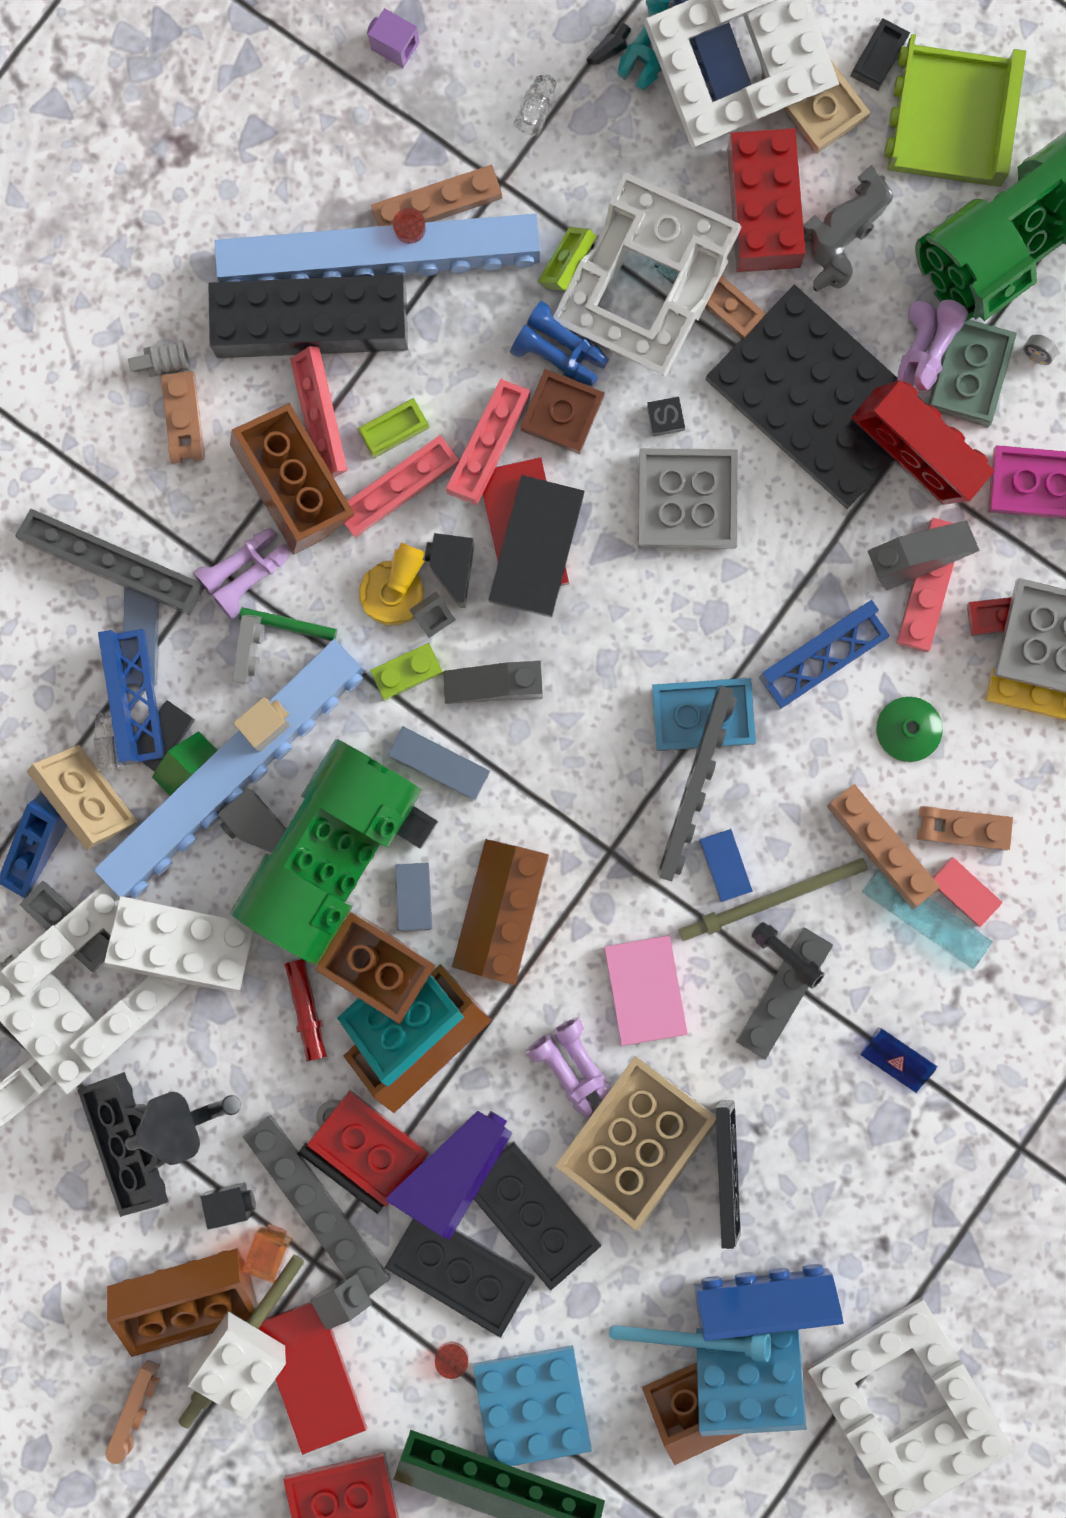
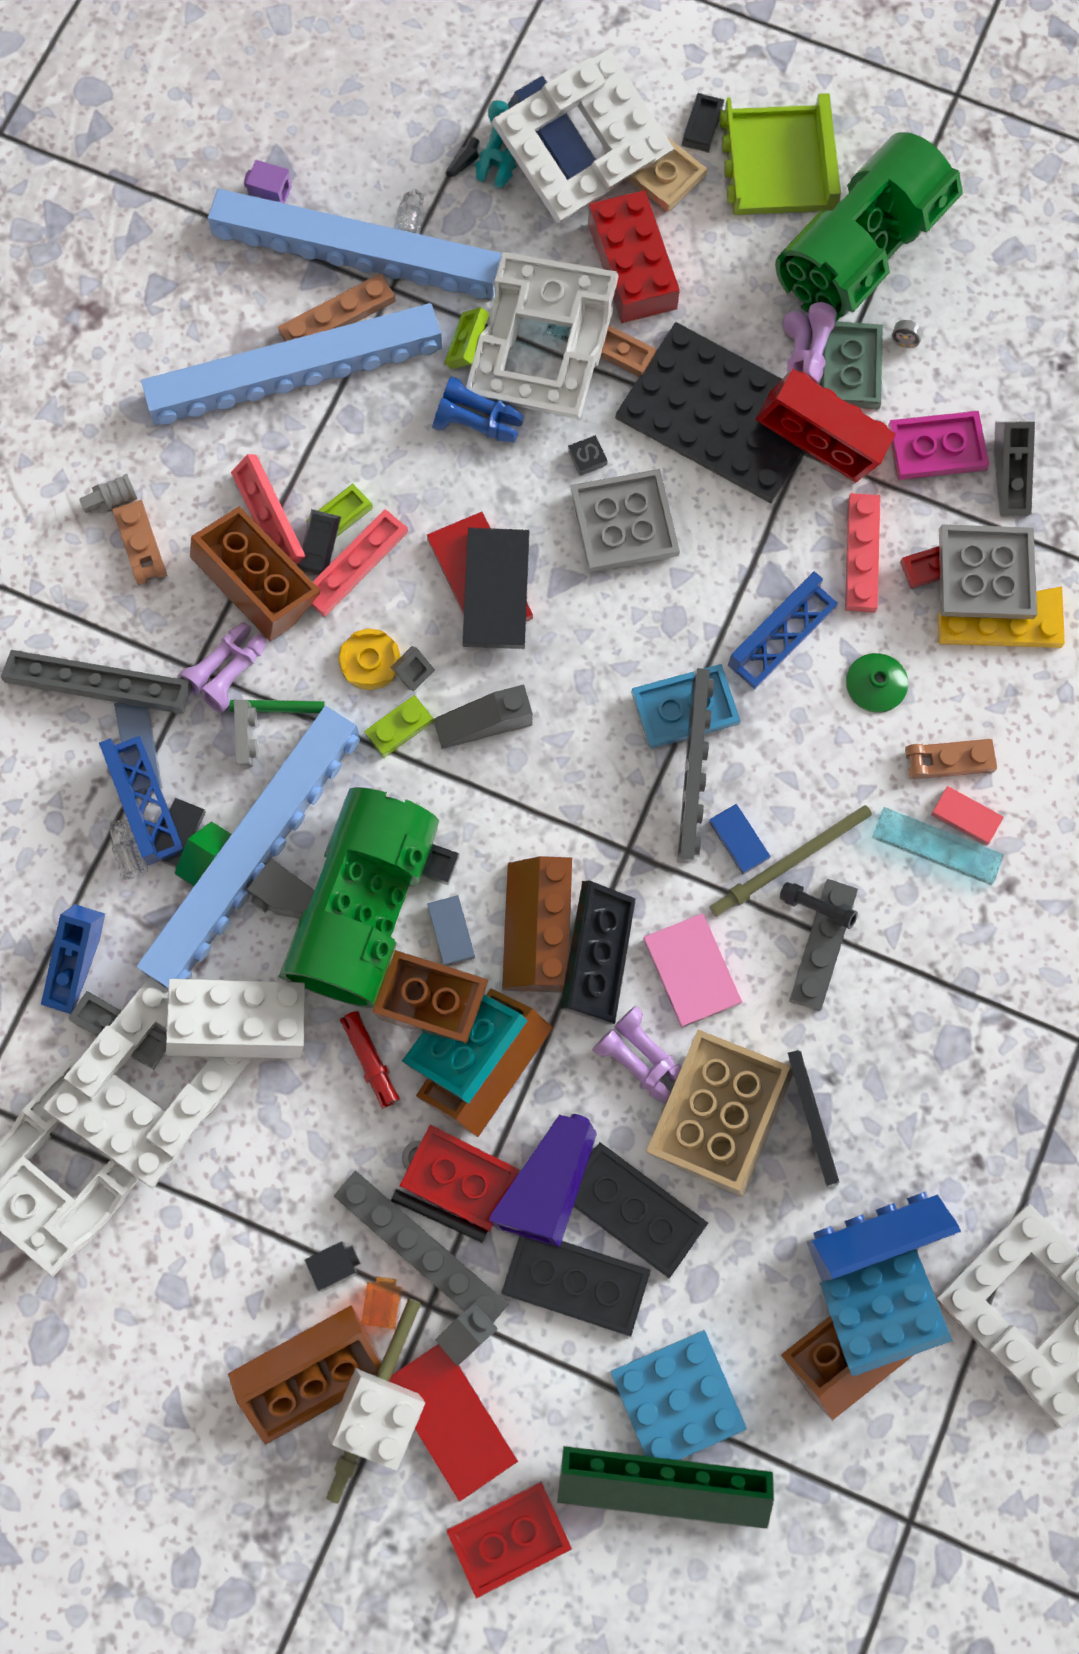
camera: 25 degrees left, 10 degrees down
(82, 796) = (111, 900): tan plate -> none
(133, 1413) = (278, 1498): nougat plate -> none
(142, 1137) = (231, 1213): black plate -> none
(263, 723) = (274, 792): tan brick -> none
(313, 312) = (222, 431): black brick -> none
(365, 456) = (319, 541): none -> black tile
(405, 567) = (378, 628): yellow cone -> none
(409, 225) = (318, 333): clear red tile -> none
(439, 763) = (450, 802): sand blue tile -> none
(451, 564) = (420, 620): black slope -> none
(451, 1360) = (587, 1371): clear red tile -> none
(470, 125) = (354, 244): none -> light blue brick
(488, 442) = (430, 506): coral plate -> none
(553, 955) = (598, 952): none -> black tile
(562, 411) = (492, 468): copper plate -> none
(754, 1346) = (882, 1275): medium azure piece -> none
(843, 226) = (707, 264): dark grey animal -> none
(883, 846) = (881, 789): nougat plate -> none
(898, 1060) = (946, 982): clear blue slope -> none
(921, 553) = (847, 522): dark grey slope -> none

